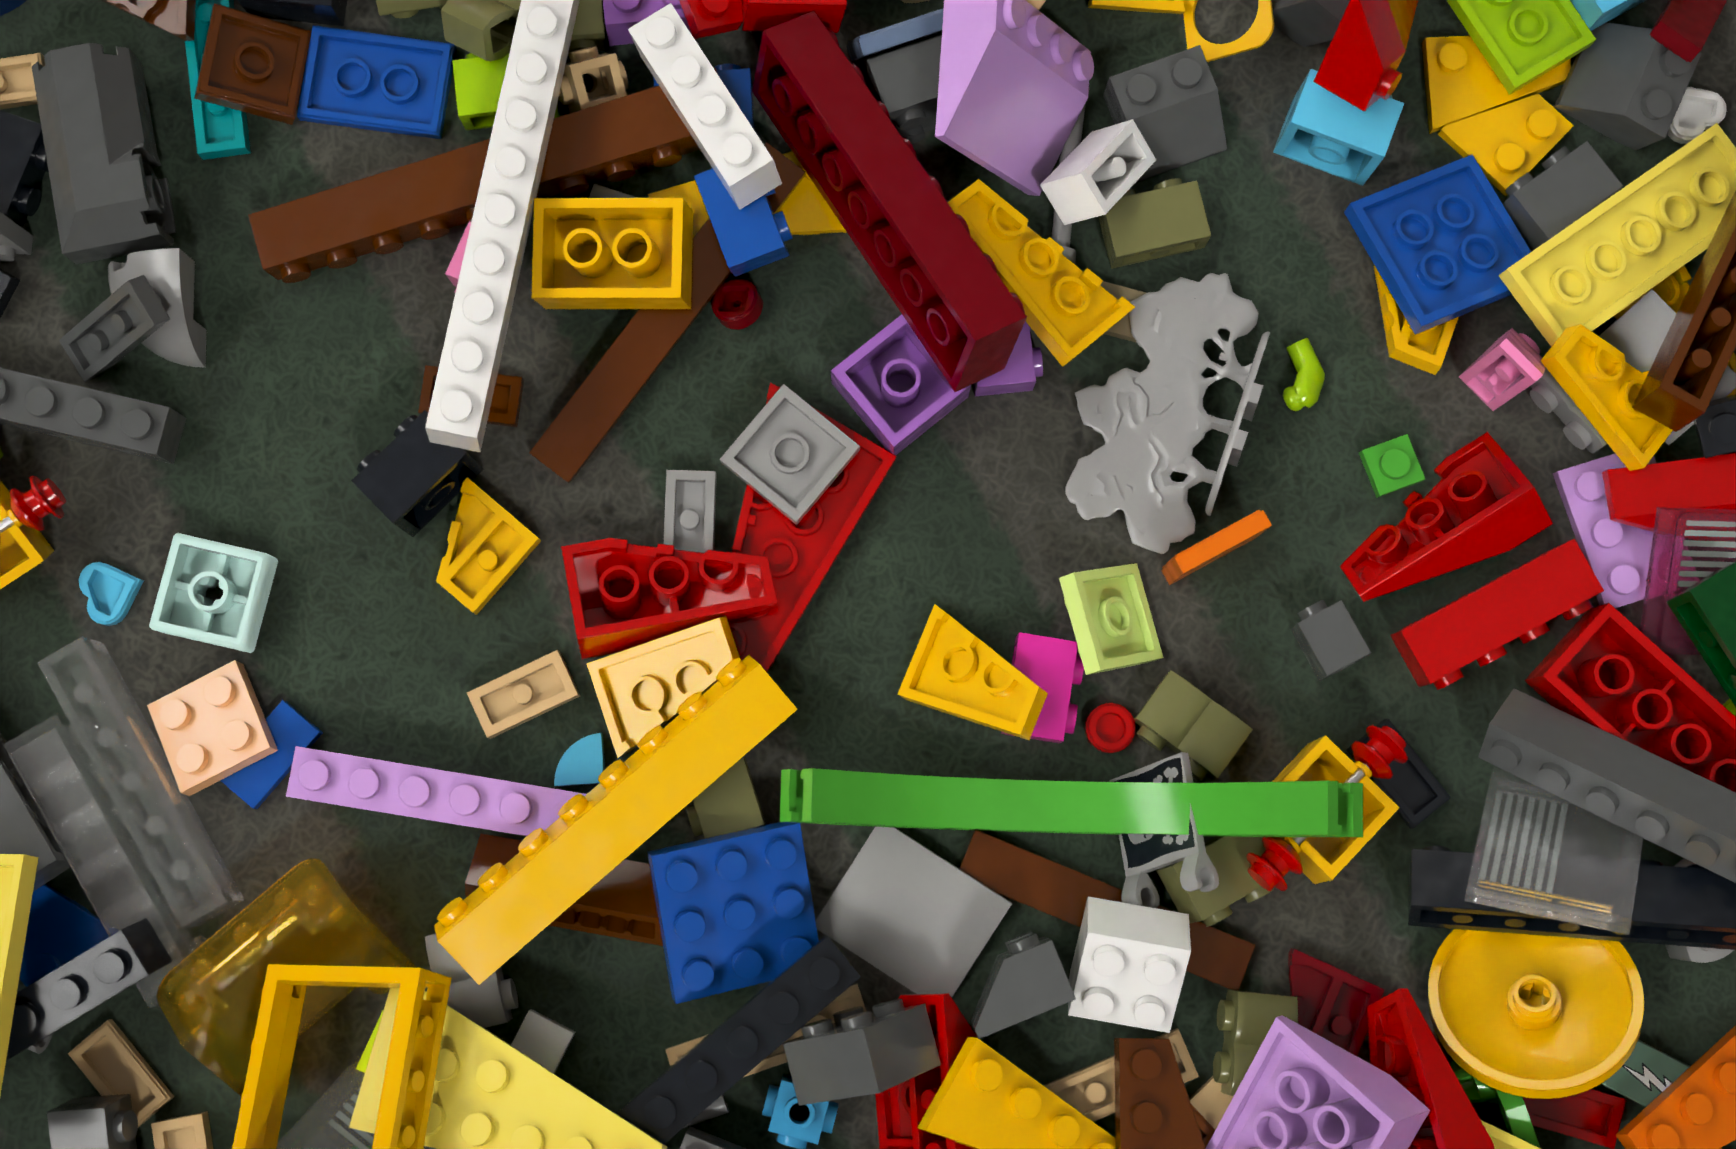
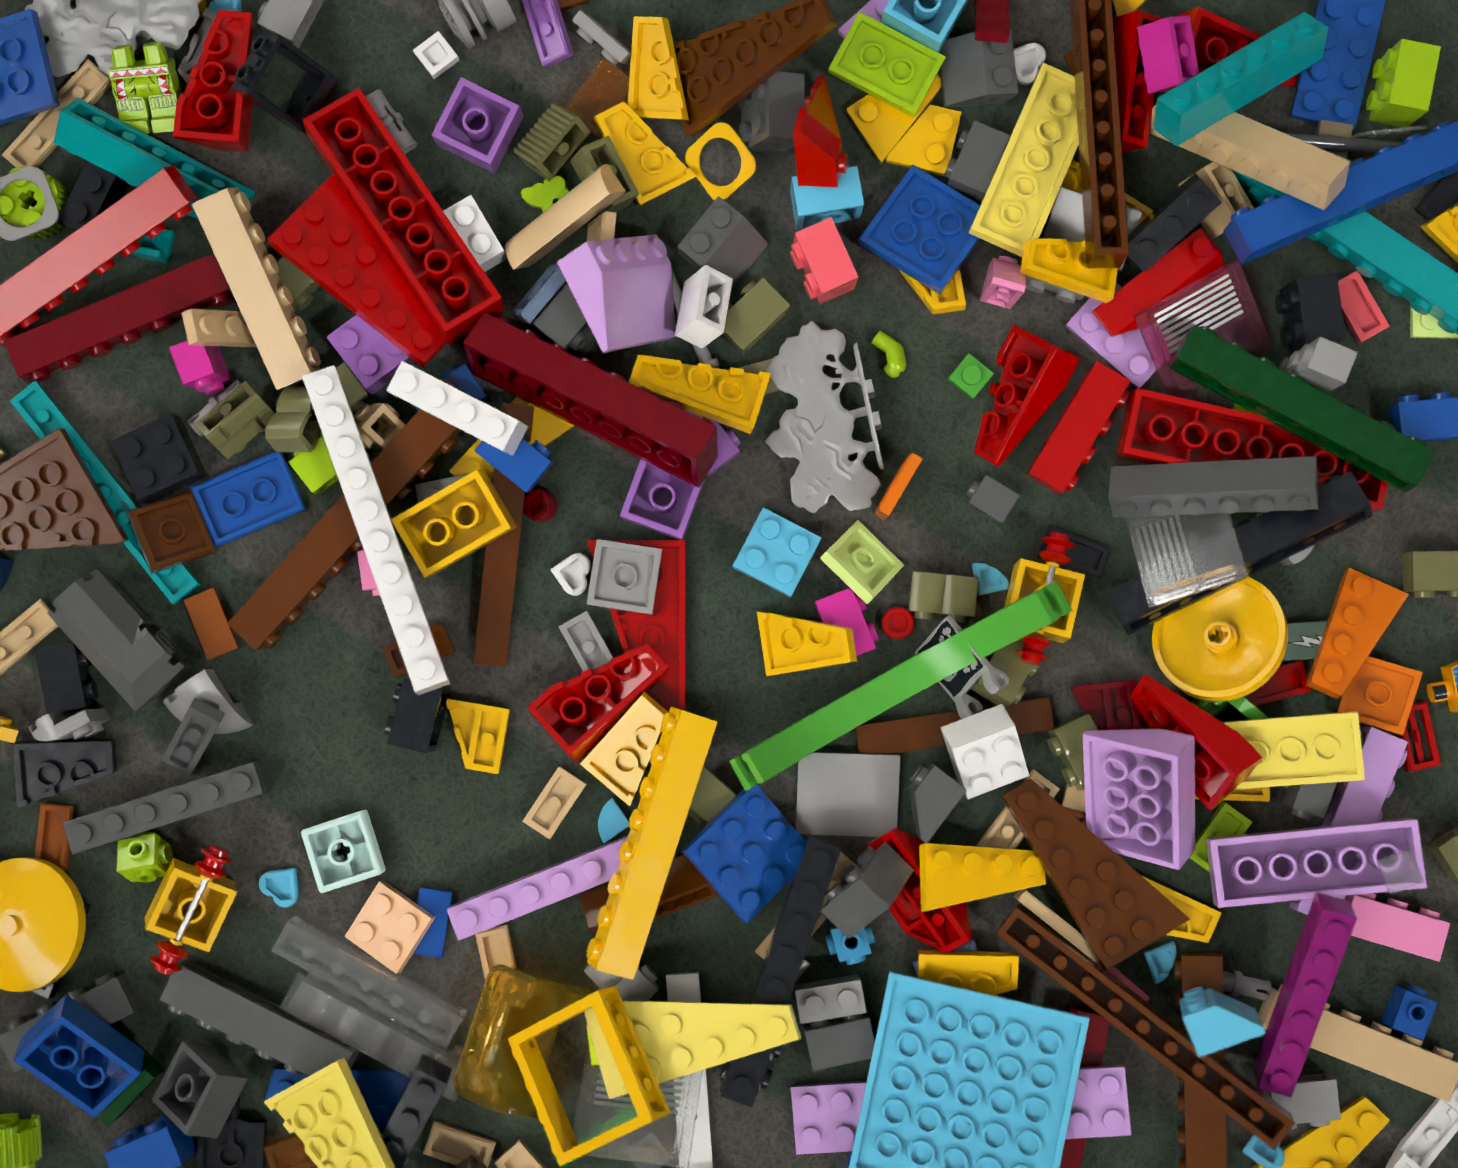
camera: 30 degrees left, 5 degrees up
(232, 196) = (211, 623): none -> dark orange tile
(331, 837) = (495, 948): none -> tan tile
(725, 415) = (572, 573): none -> white tile
(1006, 541) = (776, 552): none -> medium azure brick
(1265, 742) = (989, 579): none -> medium azure tile
(1288, 205) = (824, 261): none -> coral brick

